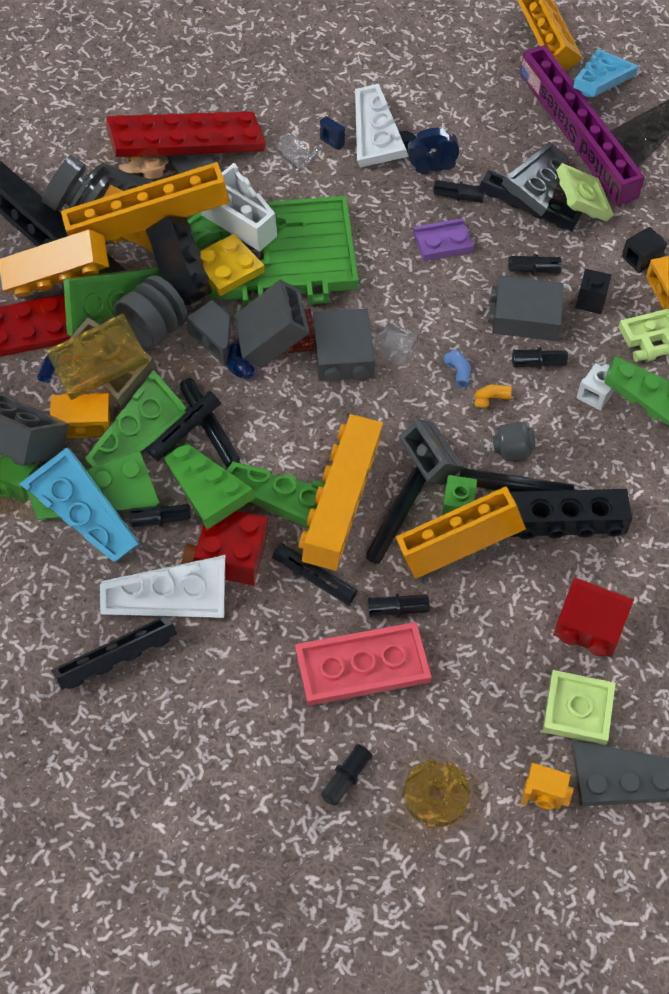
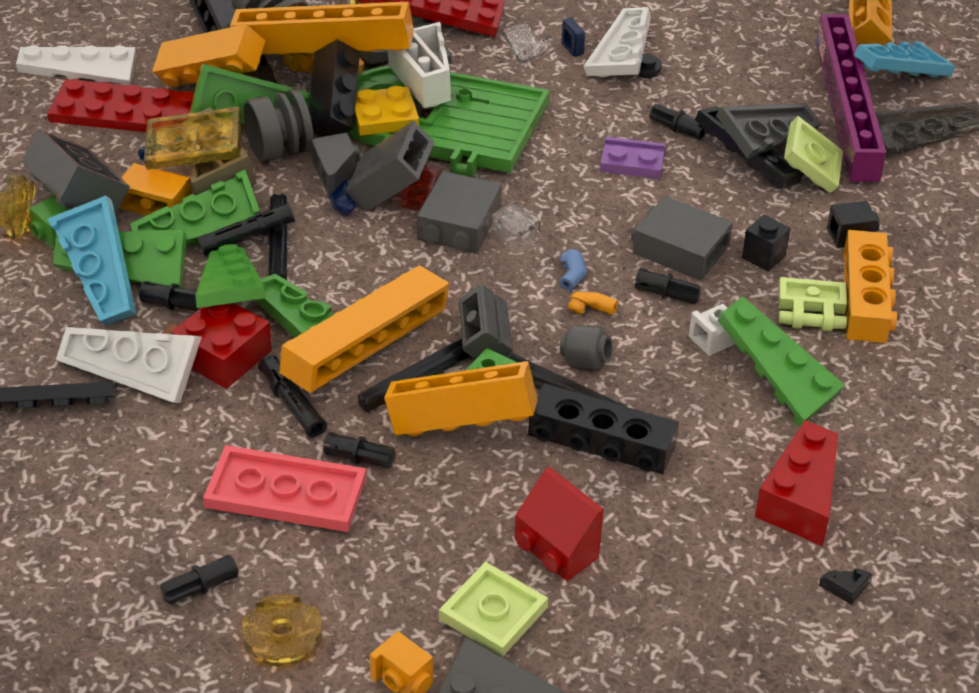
camera: 25 degrees right, 15 degrees down
(425, 160) = (661, 87): dark blue plate -> none
(534, 264) = (718, 204): black axle -> none

